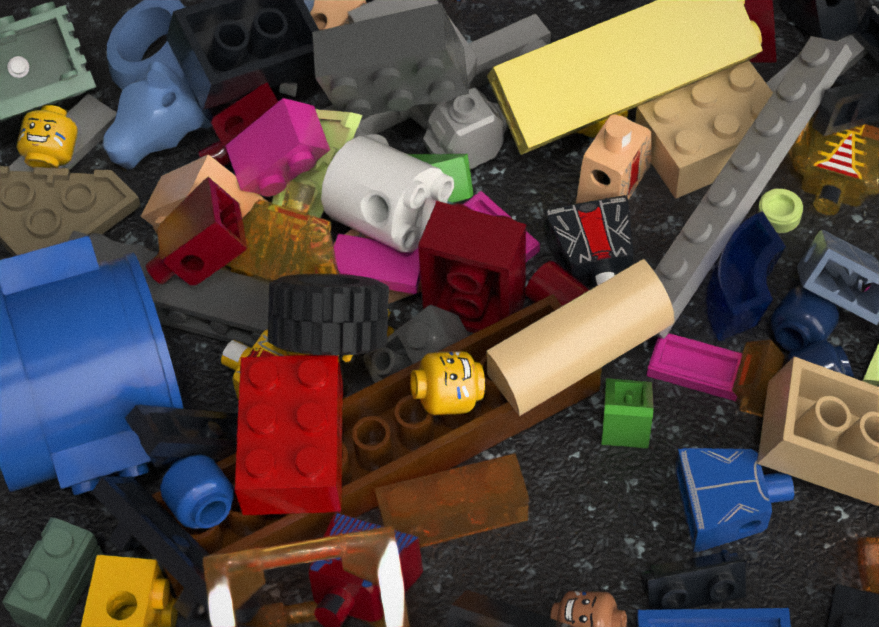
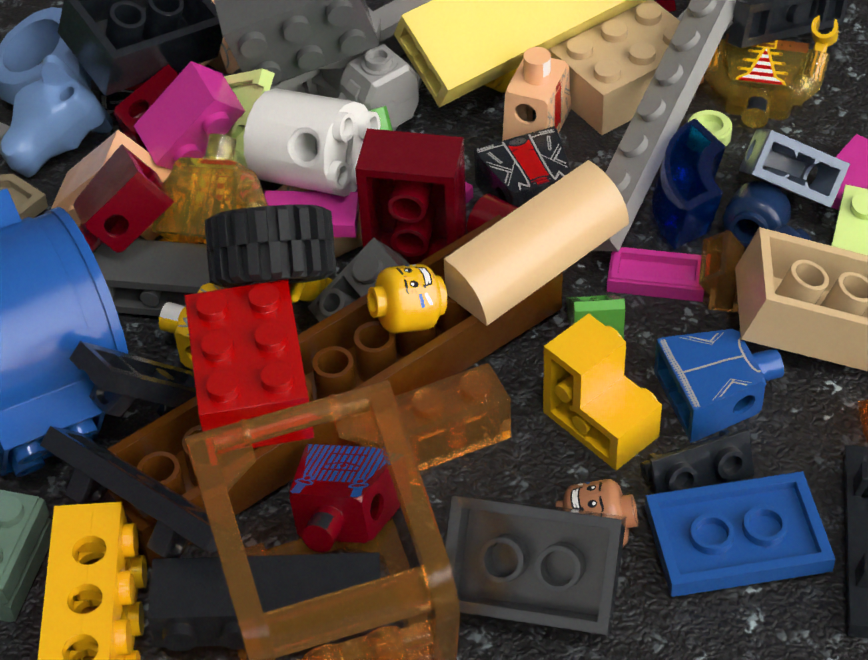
camera: 10 degrees left, 10 degrees down
(197, 492) = (154, 432): blue head -> none
(607, 497) = (593, 397): none -> yellow brick

